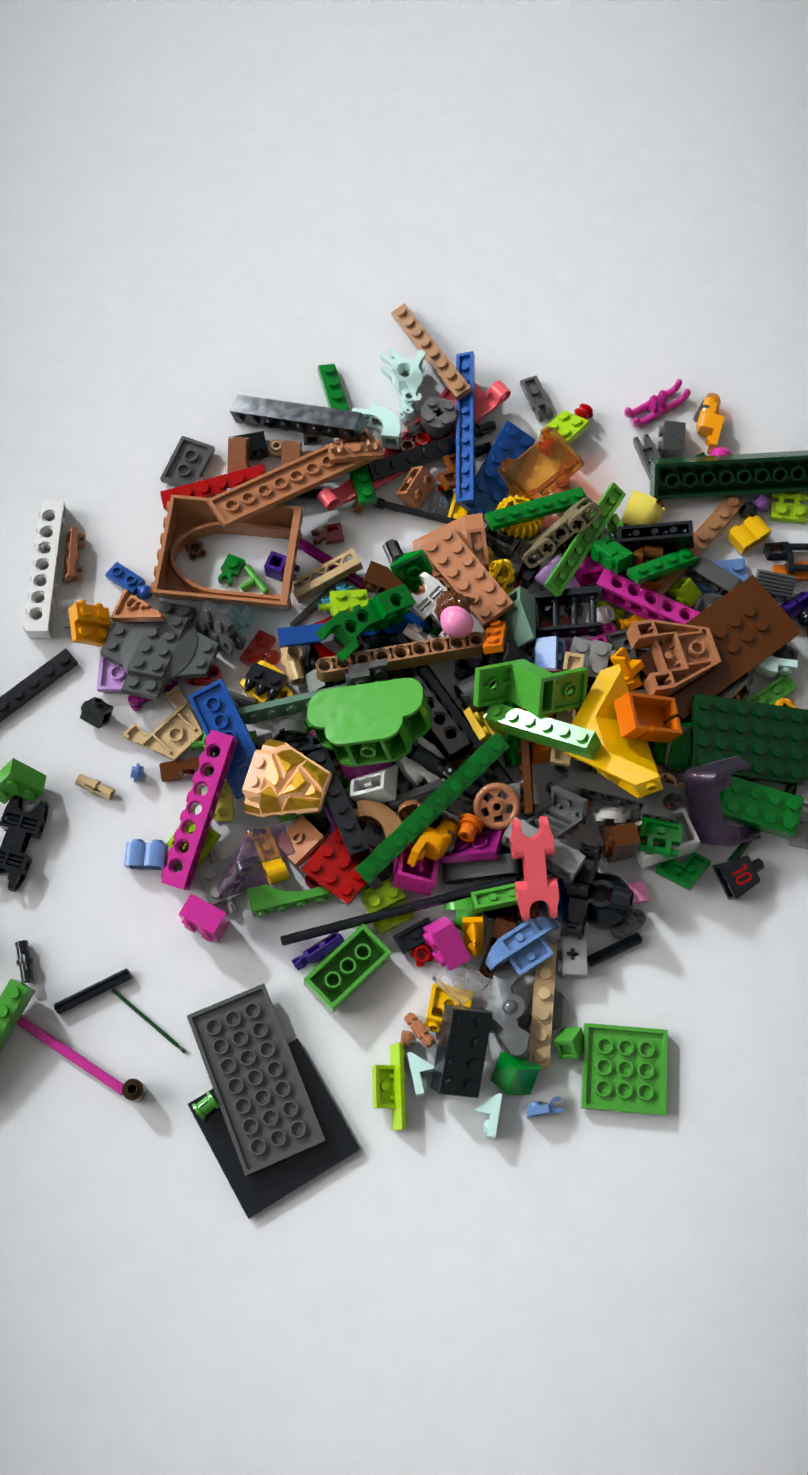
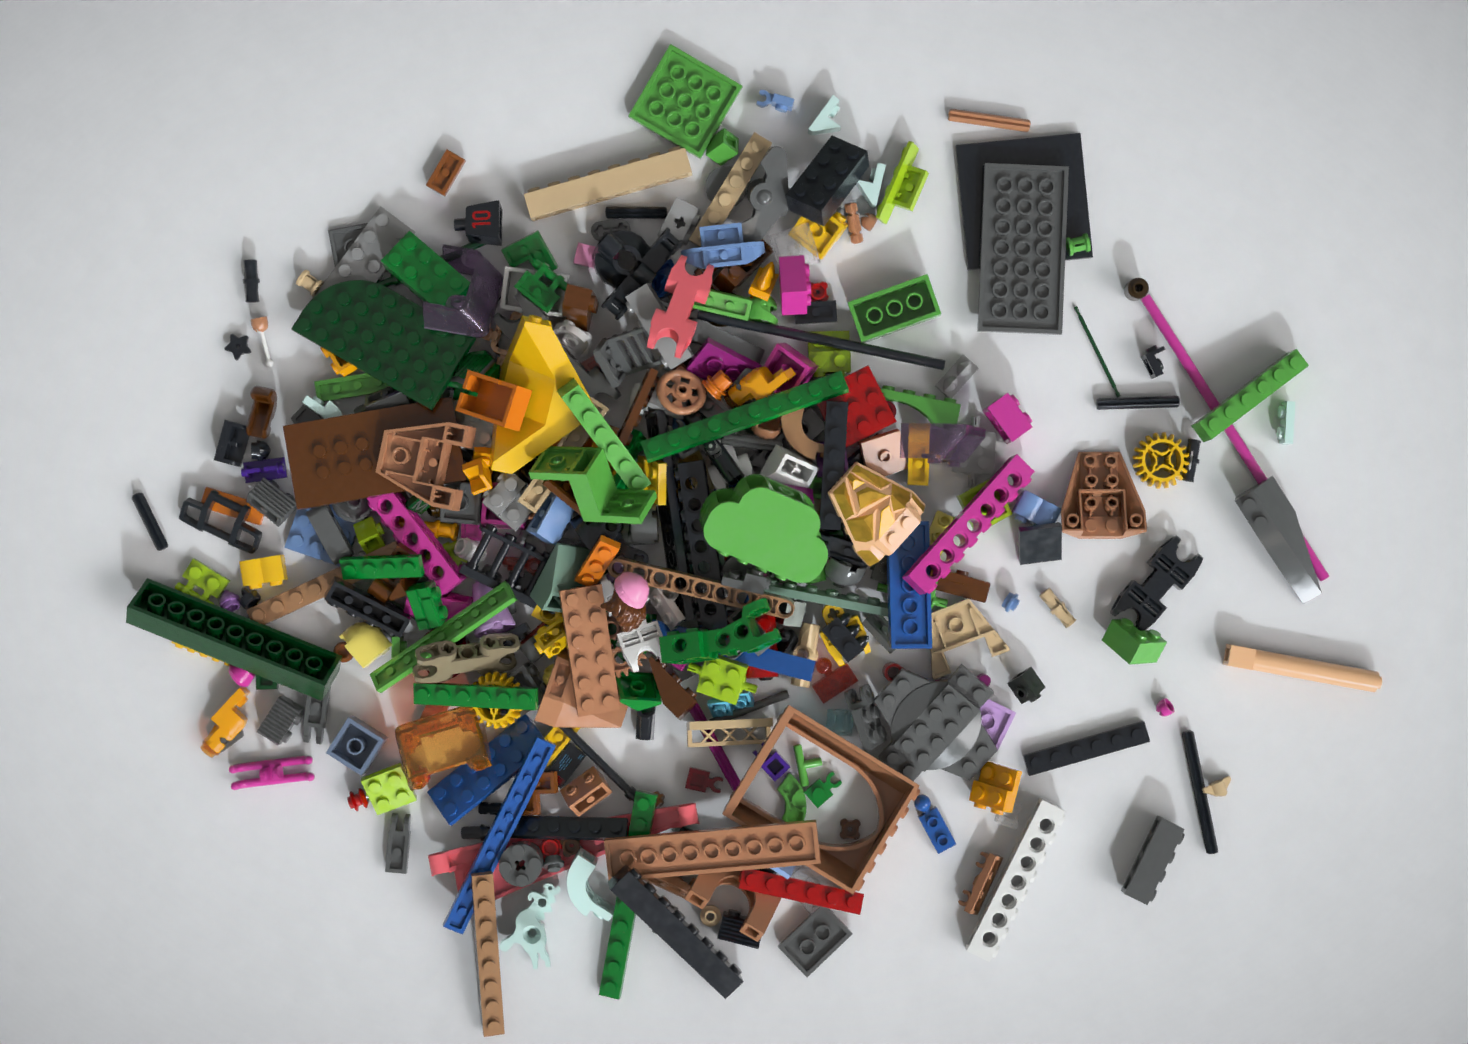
camera: 150 degrees left, 20 degrees up
(36, 942) = (1167, 466): none -> yellow gear
(90, 1030) = (1153, 365): none -> black bracket
(92, 892) = (1102, 499): none -> nougat wedge
(131, 829) = (1040, 543): none -> black tile
(133, 609) = (944, 784): nougat wing -> none
(249, 552) = (794, 799): none -> bright green tile
(265, 939) = (956, 376): none -> light grey tile
(318, 951) = (913, 340): dark purple plate -> none
(339, 1189) = (989, 120): none -> nougat axle
(355, 451) = (635, 851): nougat plate -> none
(514, 1075) = (790, 139): green slope -> none
(606, 445) = (357, 745): none -> sand blue brick
(651, 961) = (608, 184): none -> tan brick
(793, 905) = (445, 173): none -> dark orange plate

